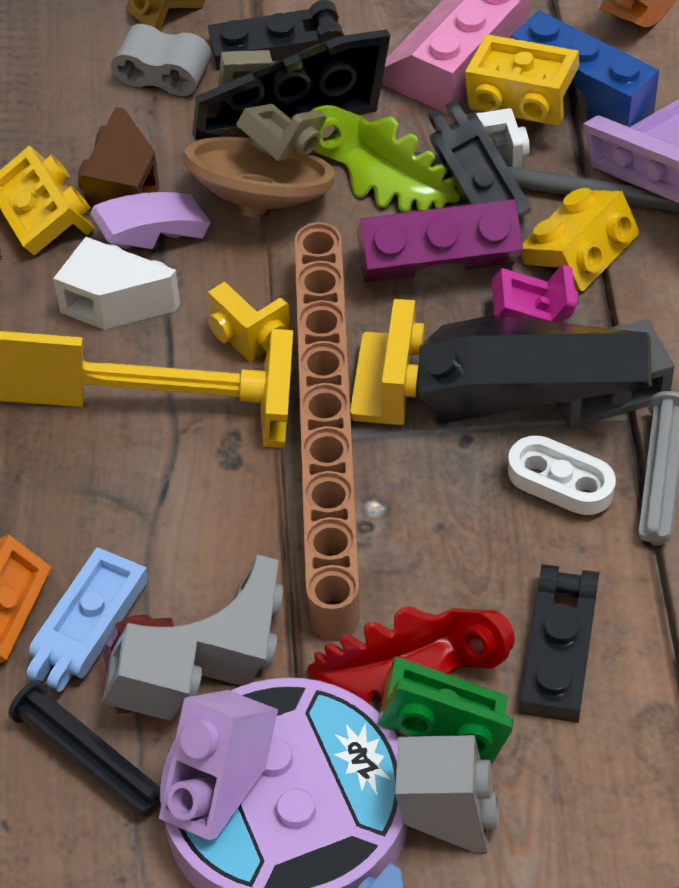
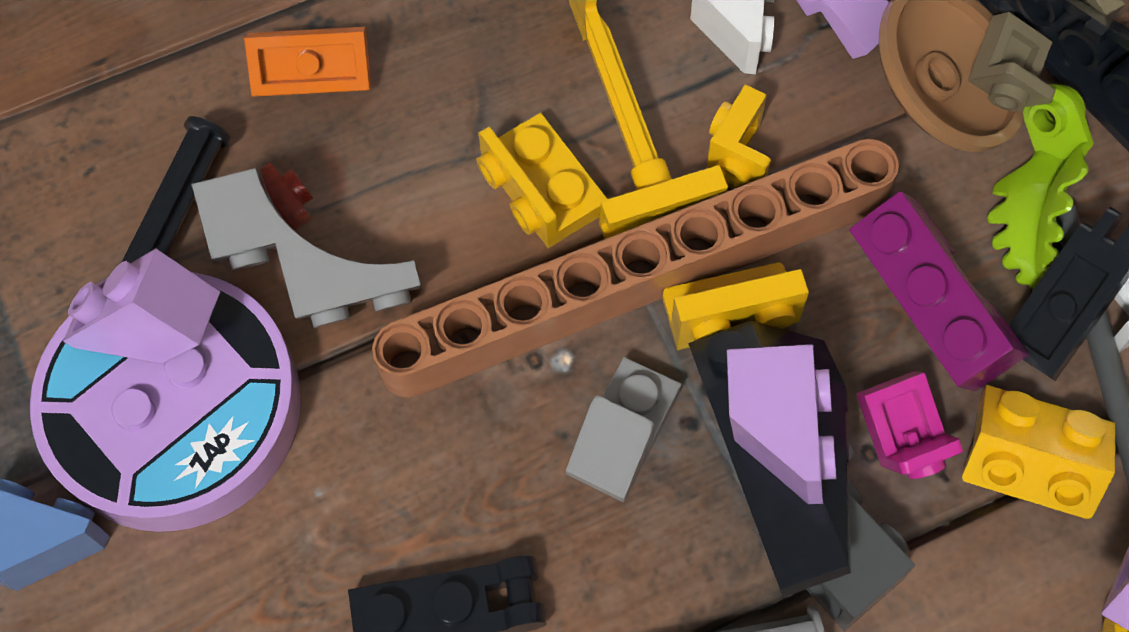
camera: 70 degrees right, 15 degrees up
(85, 618) = (315, 142): light blue hinge -> none
(207, 468) = (541, 178): none -> yellow bracket
(434, 641) = (366, 467): red plant -> none
(436, 704) = (298, 514): green bracket -> none
(446, 790) = (180, 545): light grey slope -> none
(458, 477) = (622, 429): none -> light grey slope
(524, 327) = (775, 414): none -> lavender slope
(563, 475) = (665, 541): white plate -> none

